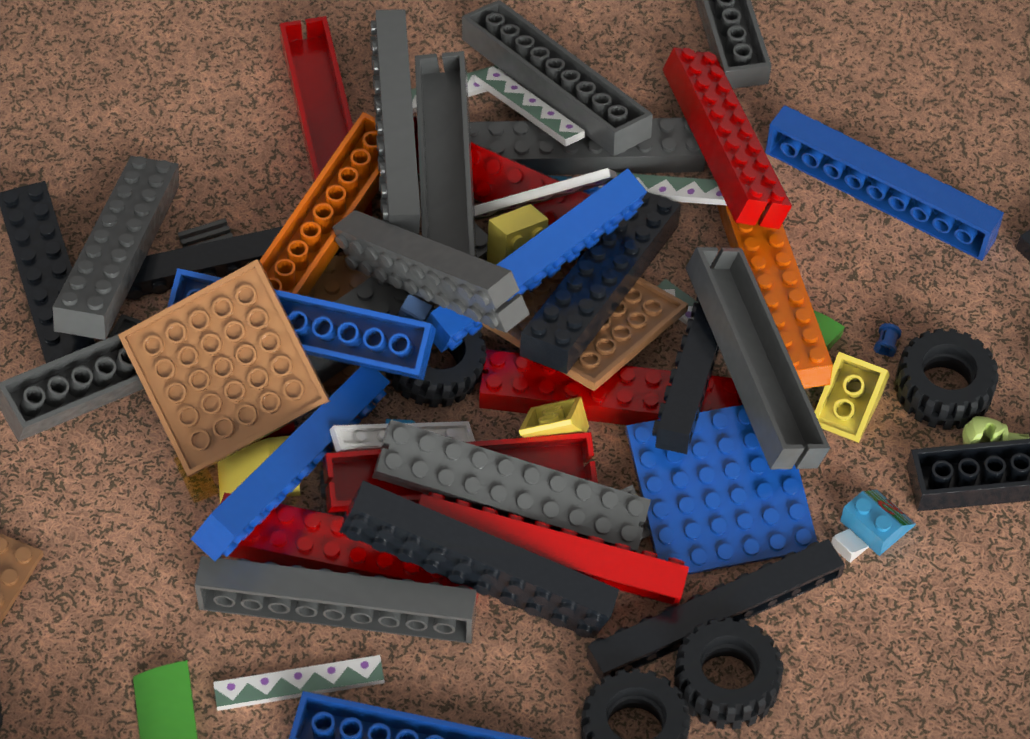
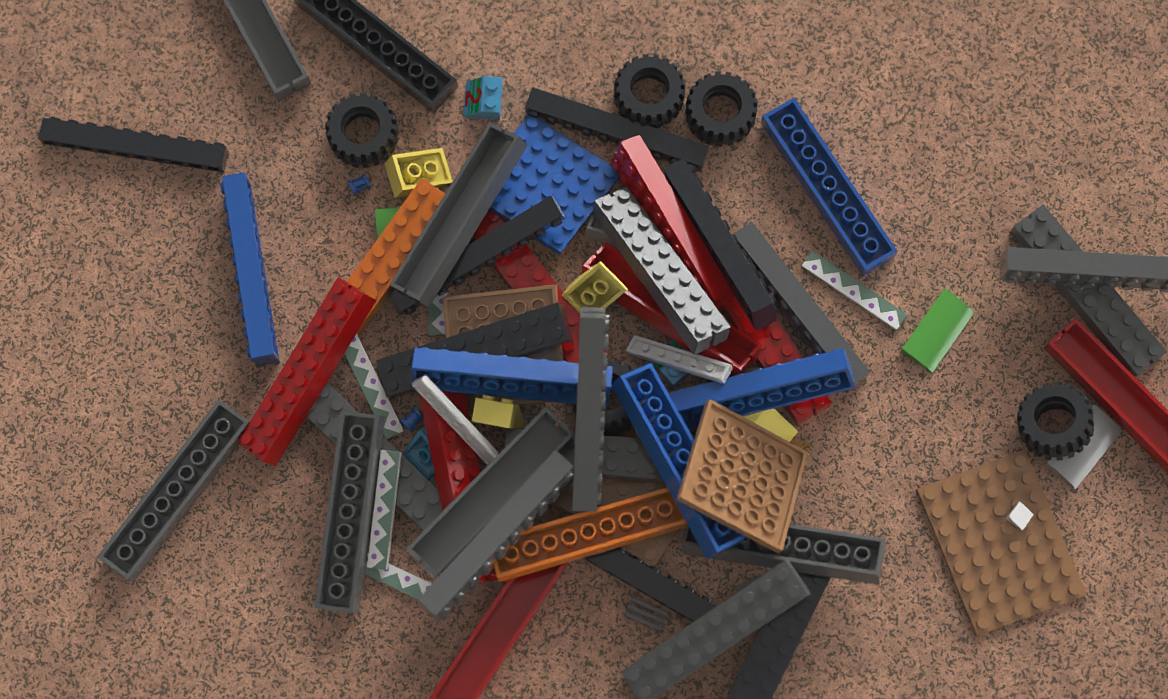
camera: 130 degrees left, 20 degrees up
(415, 309) = (610, 412): medium blue slope -> none
(848, 544) = (511, 102): white slope -> none
(988, 430) = (373, 78): yellowish green piece -> none

